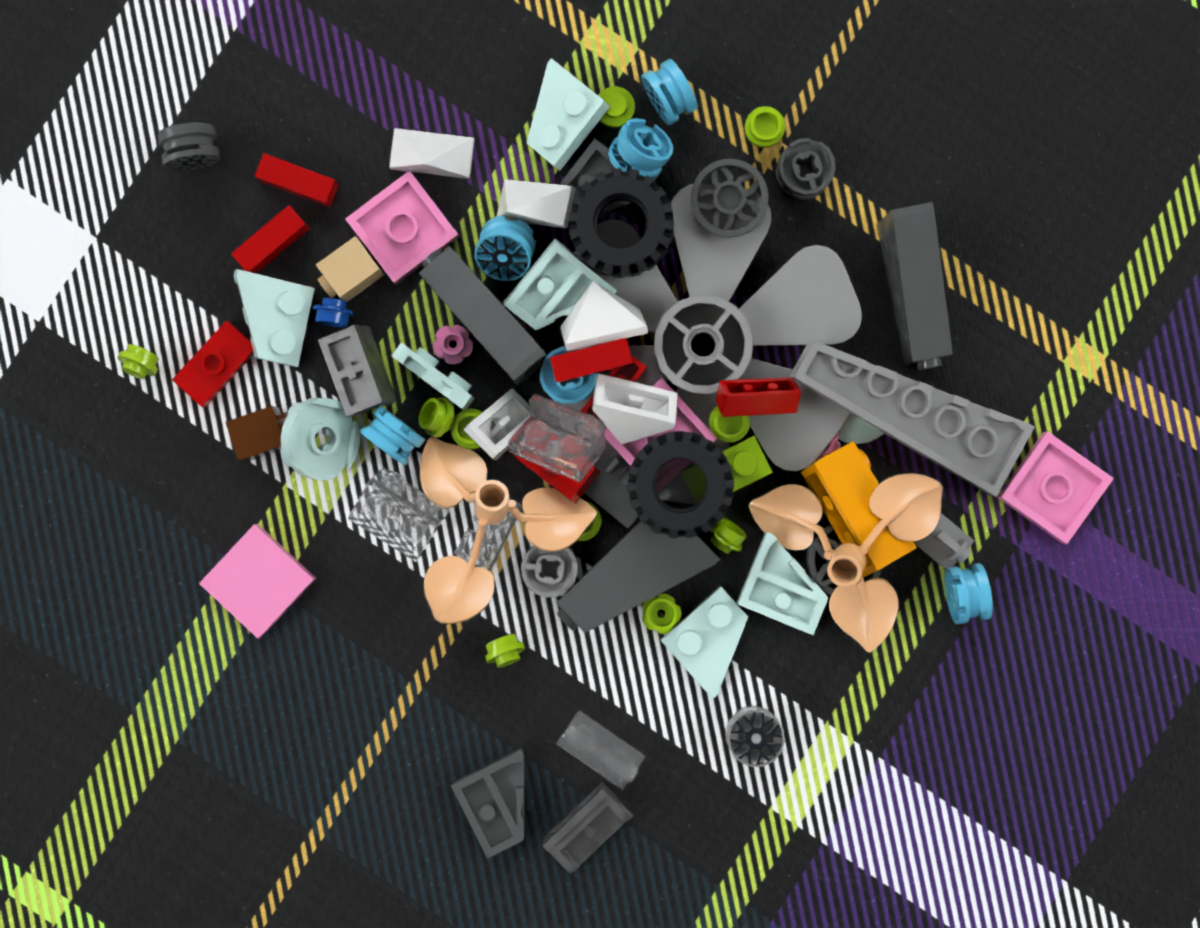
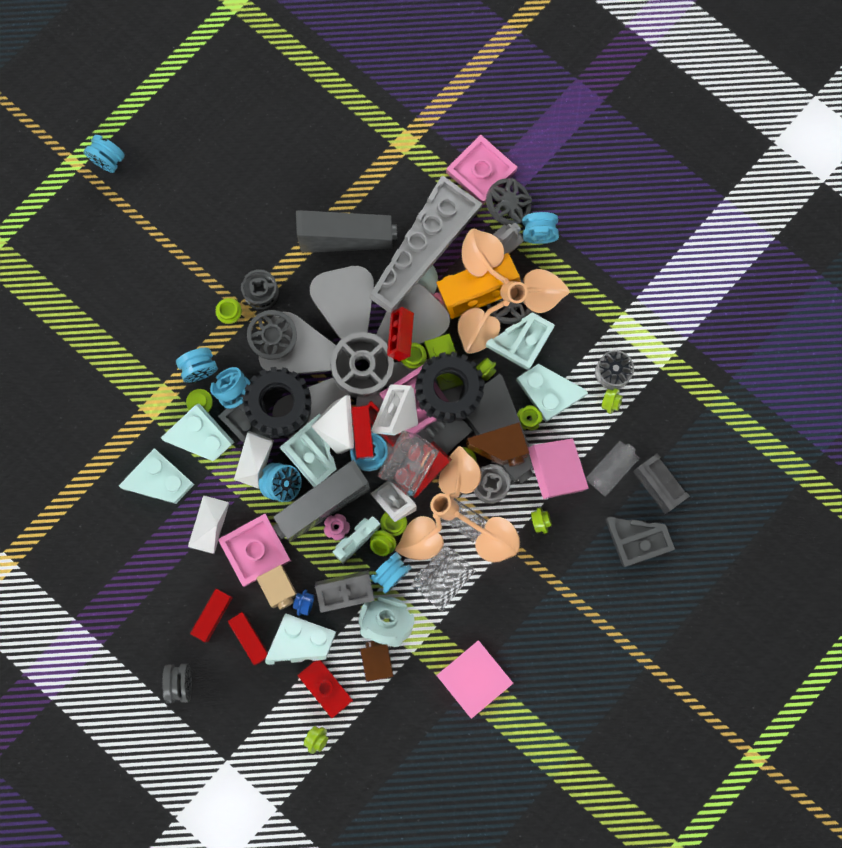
camera: 80 degrees left, 10 degrees down
(488, 65) = (157, 479): none -> light aqua wing
(585, 666) = (557, 468): none -> bright pink tile
(603, 578) = (501, 445): none -> reddish brown slope
(705, 737) = (612, 400): none -> lime plate
(1006, 537) = (508, 201): none -> dark grey wheel

